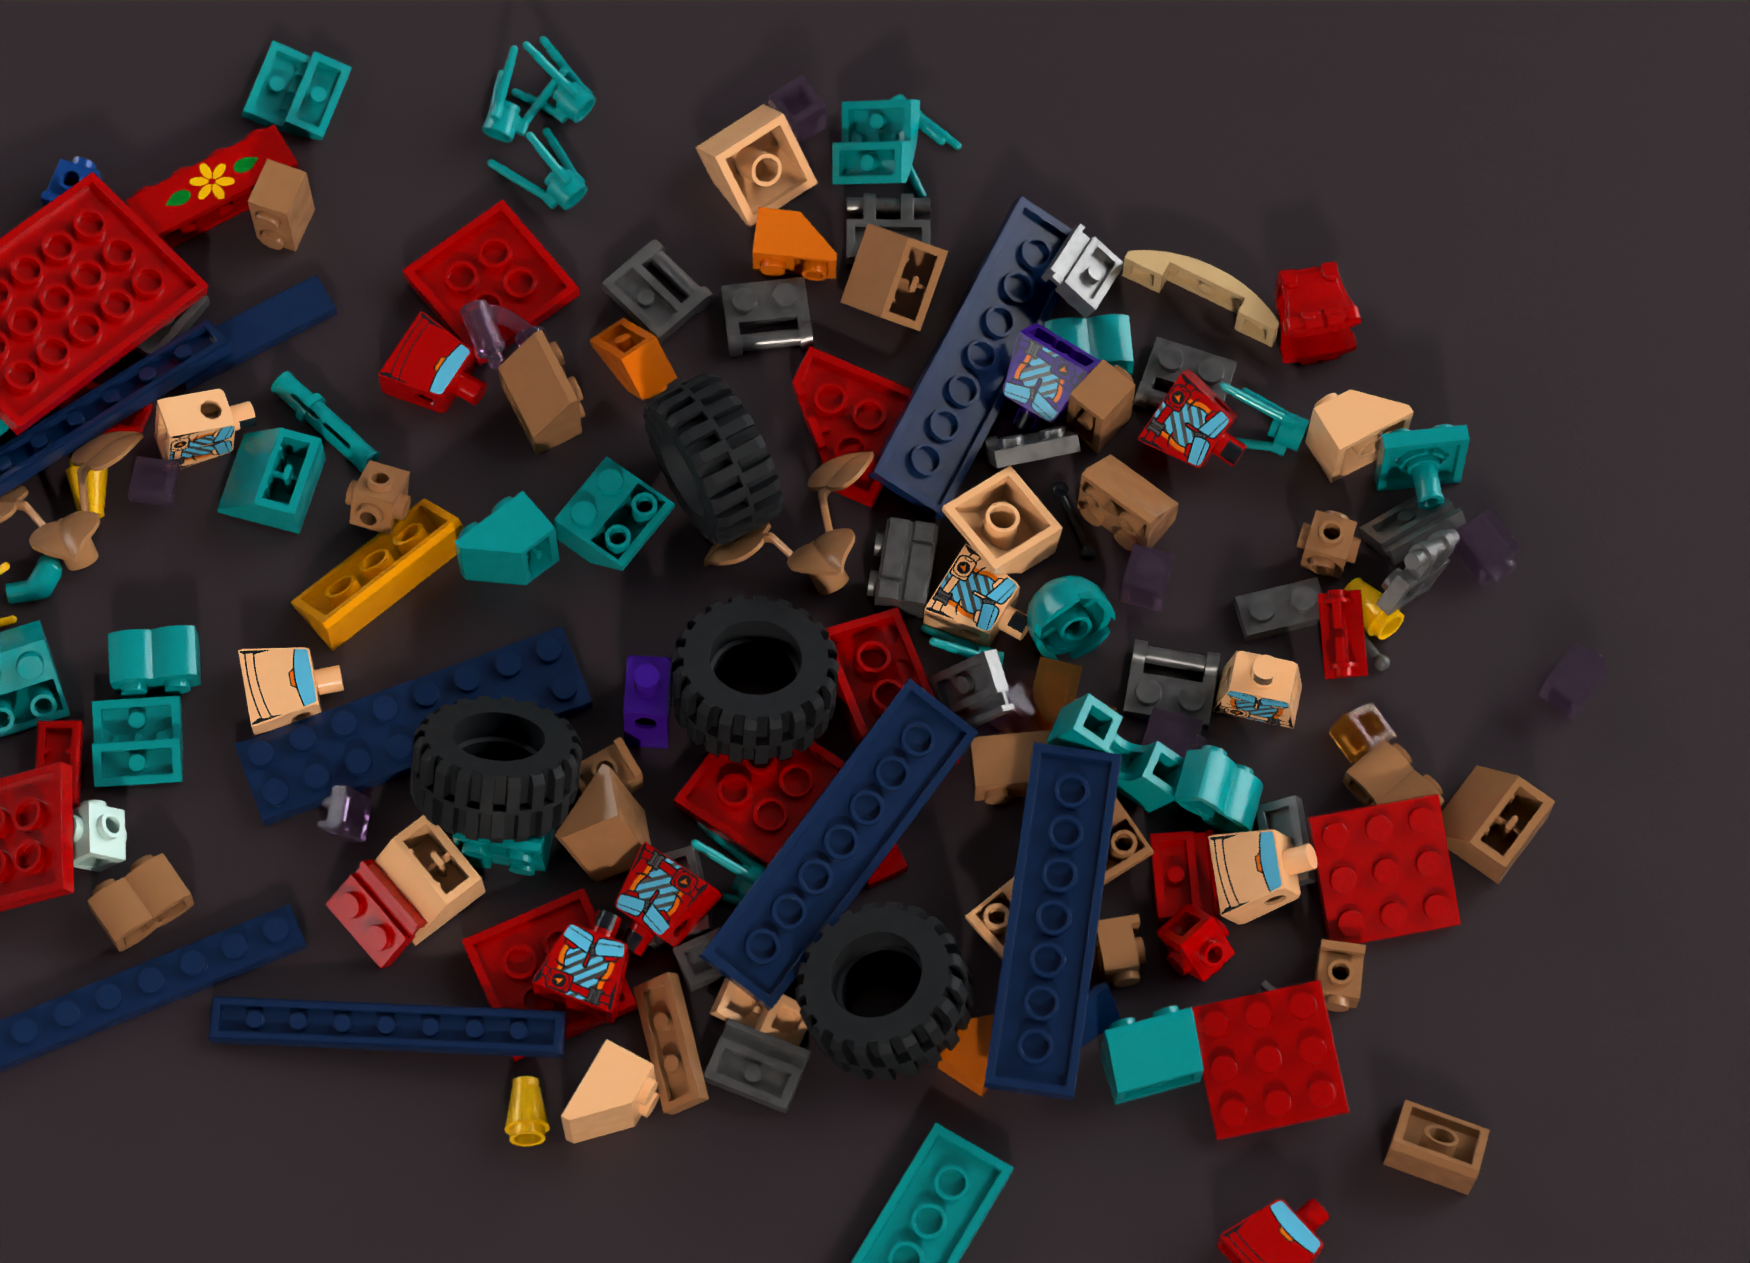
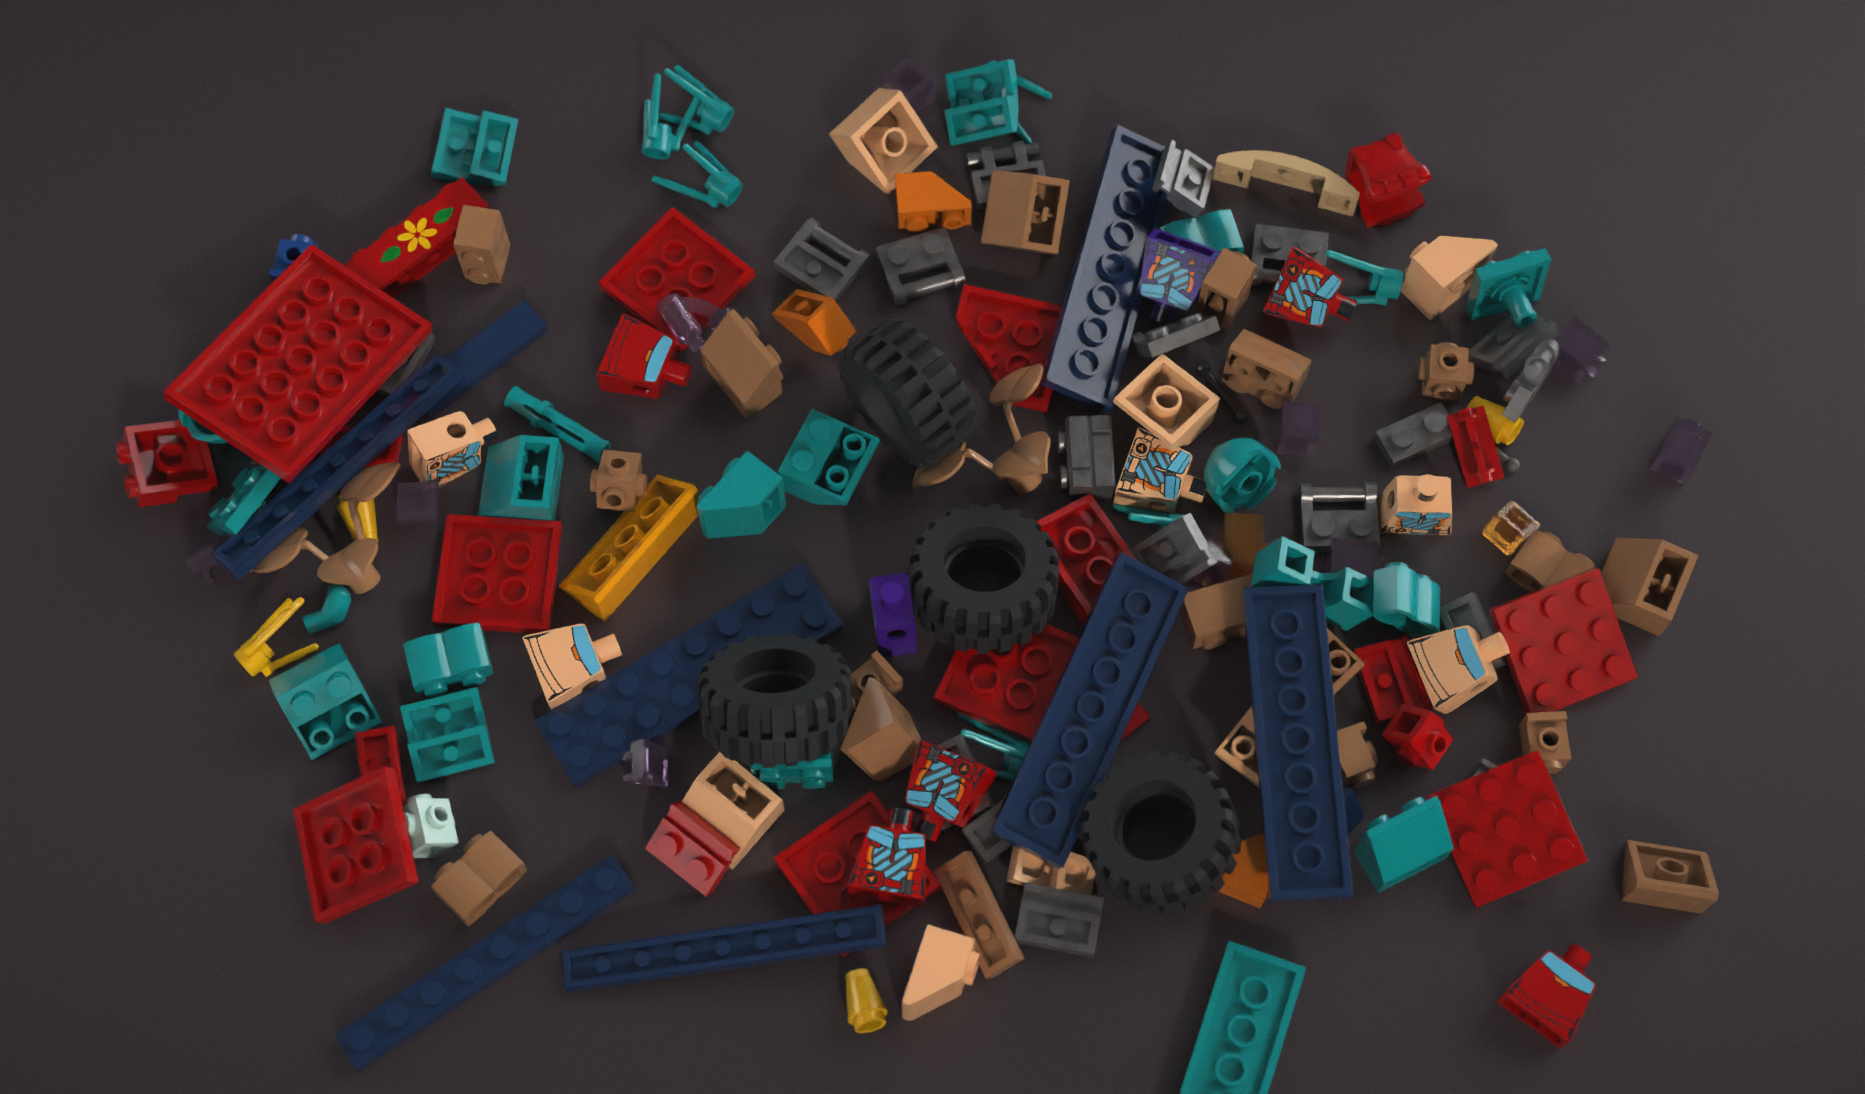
camera: 10 degrees left, 0 degrees up
(227, 575) = (498, 573): none -> red plate

